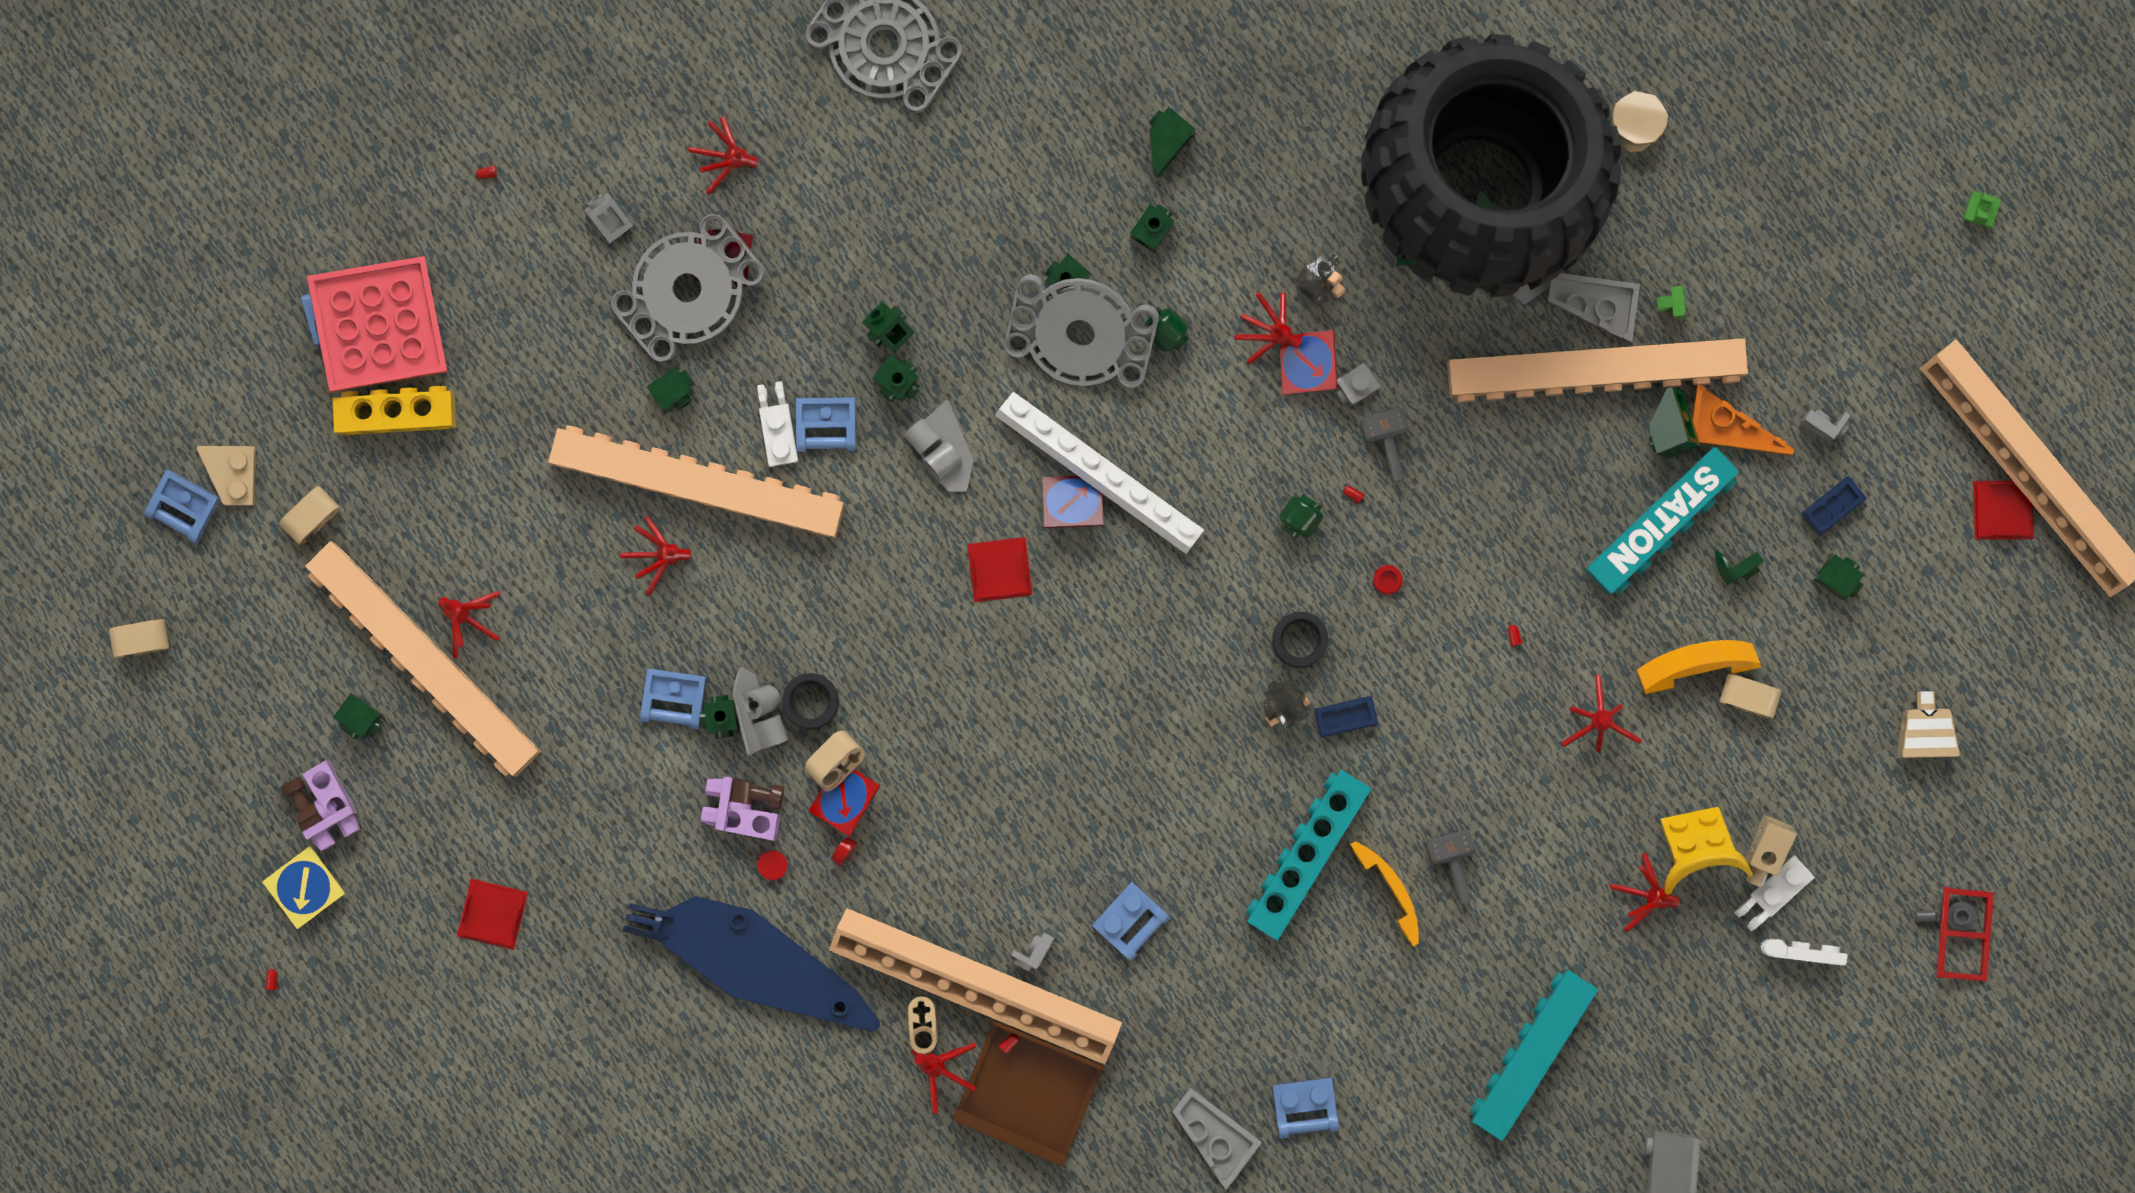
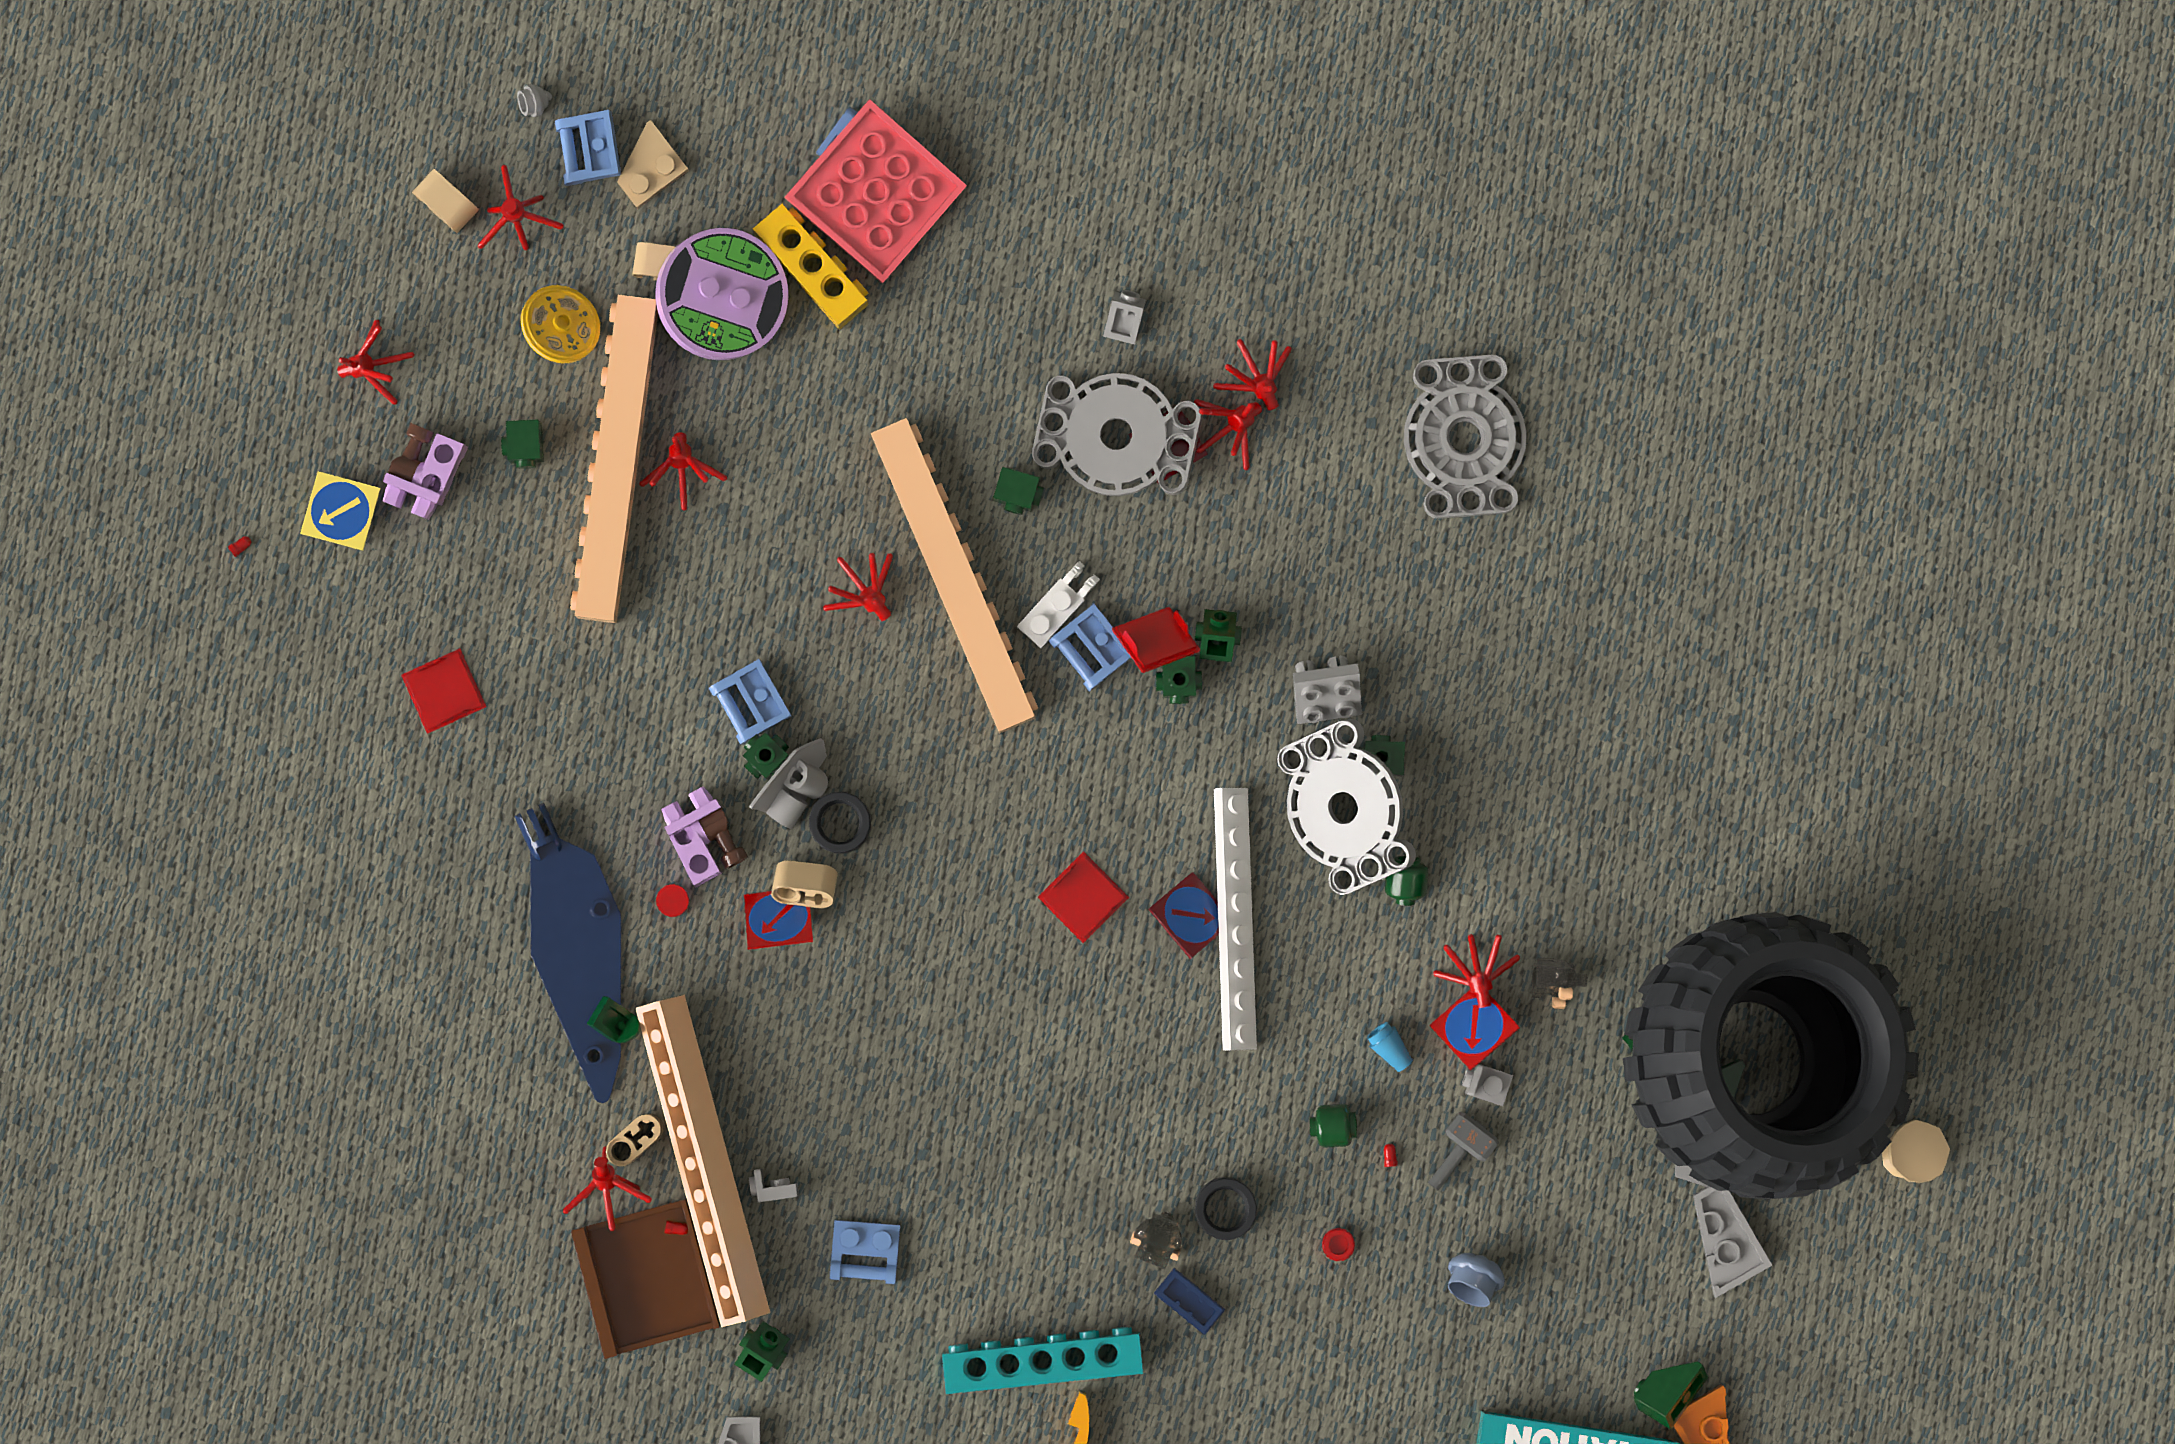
camera: 45 degrees right, 0 degrees up
(116, 519) = (533, 100): none -> light grey plate
(186, 594) = (514, 212): none -> red plant
(211, 789) = (363, 365): none -> red plant
(293, 624) = (560, 324): none -> yellow shield
(363, 491) = (721, 294): none -> piece
(488, 172) = (1082, 182): red piece -> none
(746, 194) = (1238, 420): none -> red plant
(826, 973) = (614, 1021): none -> dark green plate
(844, 851) = (732, 954): red tile -> none
(856, 373) = (1156, 639): none -> red piece
(943, 448) = (1150, 765): light grey panel -> none
(988, 281) = (1326, 691): none -> light grey plate
(1143, 1043) = (762, 1351): none -> dark green brick
(1152, 227) = (1487, 797): dark green brick -> none
(1167, 138) = (1575, 749): dark green slope -> none
(1275, 433) = (1389, 1045): none -> dark azure cone
(1487, 501) = (1474, 1279): none -> sand blue piece
(1514, 636) = (1376, 1394): red piece -> none
(1597, 368) = (1668, 1285): light nougat brick -> none
(1674, 303) = (1780, 1309): bright green tile -> none

